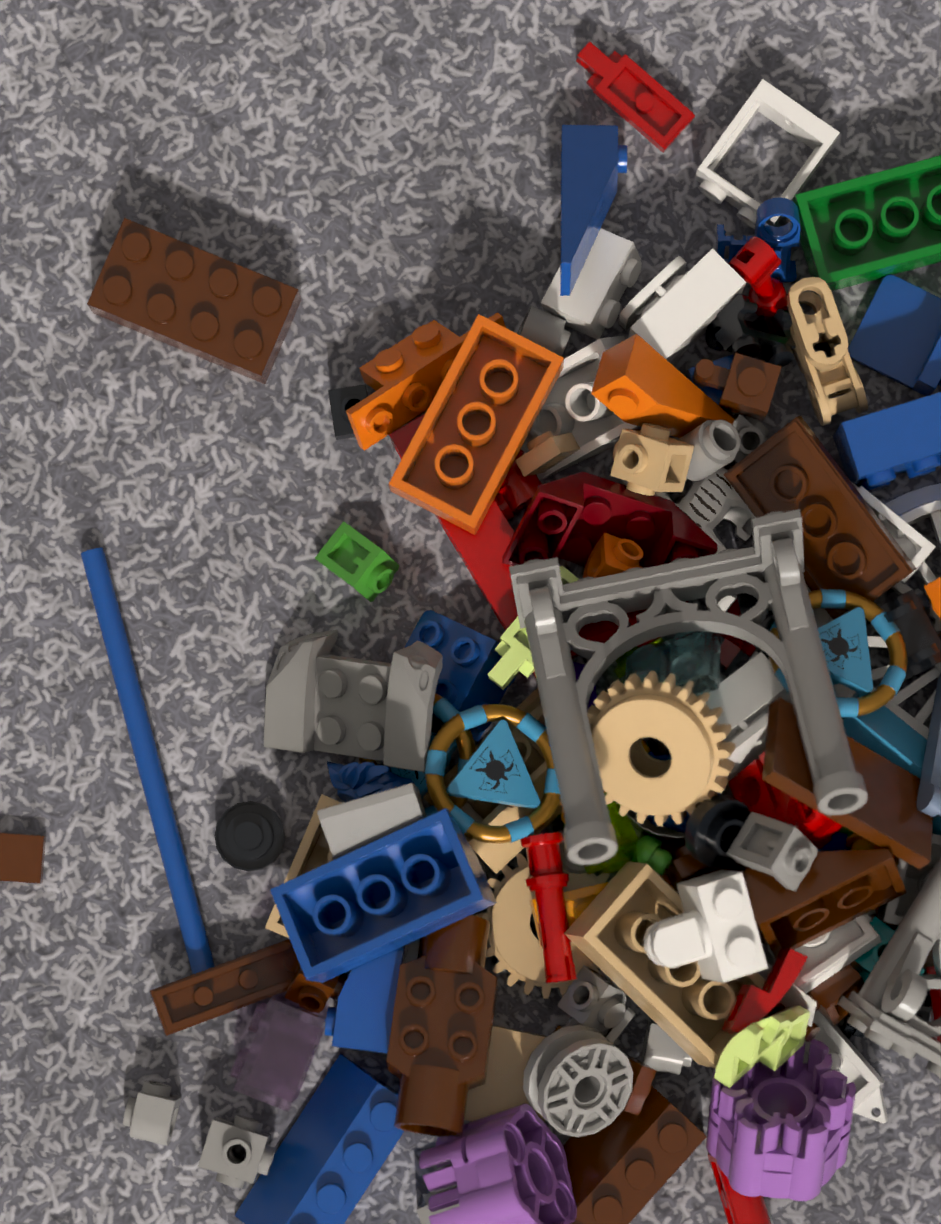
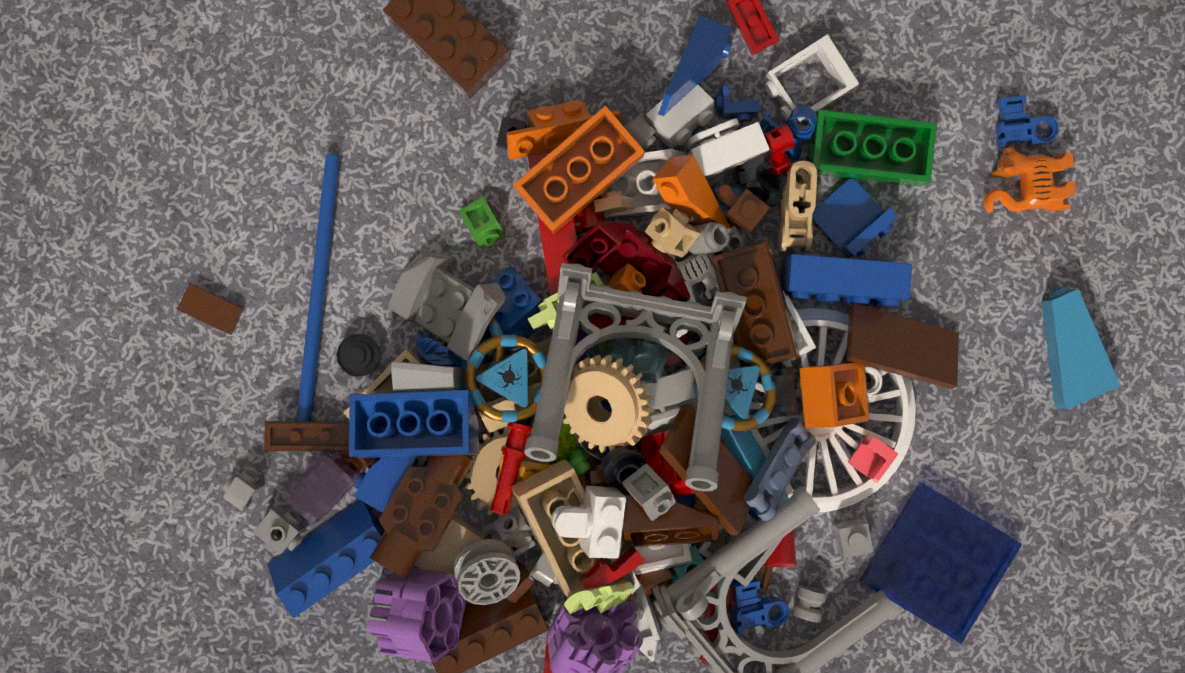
camera: 15 degrees right, 5 degrees up
(678, 241) = (735, 109): none -> blue bracket

